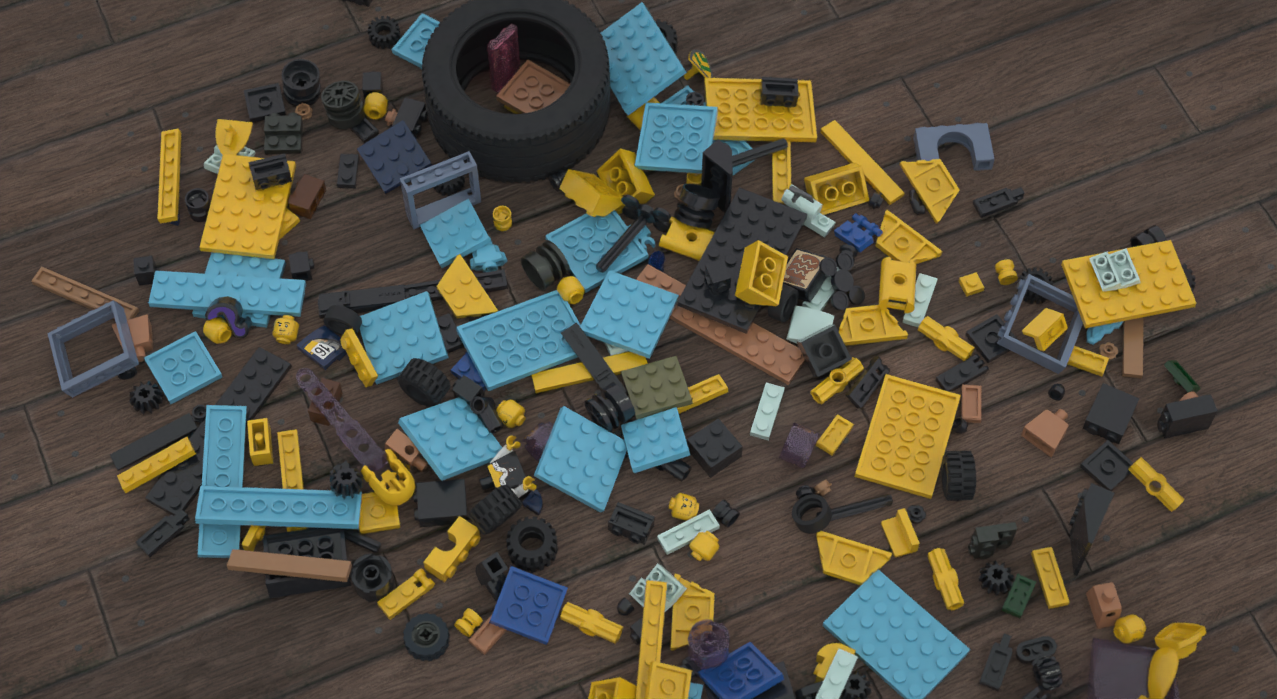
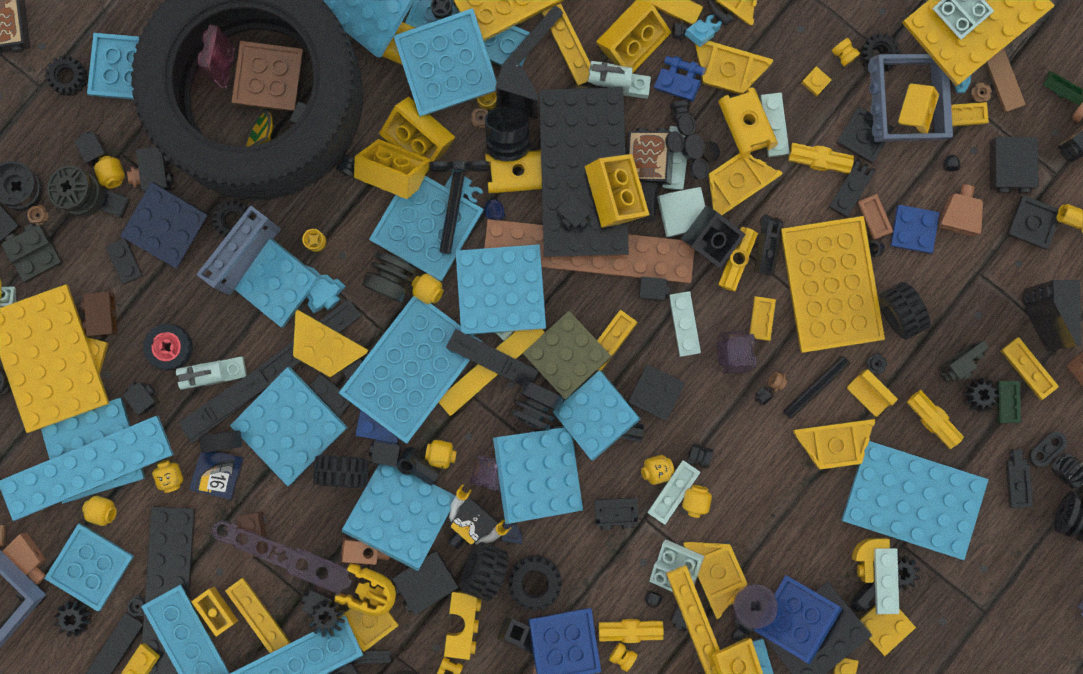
camera: 30 degrees left, 25 degrees up
(232, 312) = (106, 491): black animal -> none
(270, 172) = (49, 316): black hinge -> none
(346, 251) = (180, 347): none -> black wheel
(358, 358) = (258, 472): yellow plate -> none
(364, 272) = (211, 373): none -> light aqua plate
(573, 640) = (623, 657): none -> yellow wheel
(754, 371) = (653, 289): none -> black brick
(817, 524) = (766, 417): black tyre -> none
(893, 207) = (703, 32): none -> medium azure plate
(1000, 427) = (914, 229): none -> blue plate

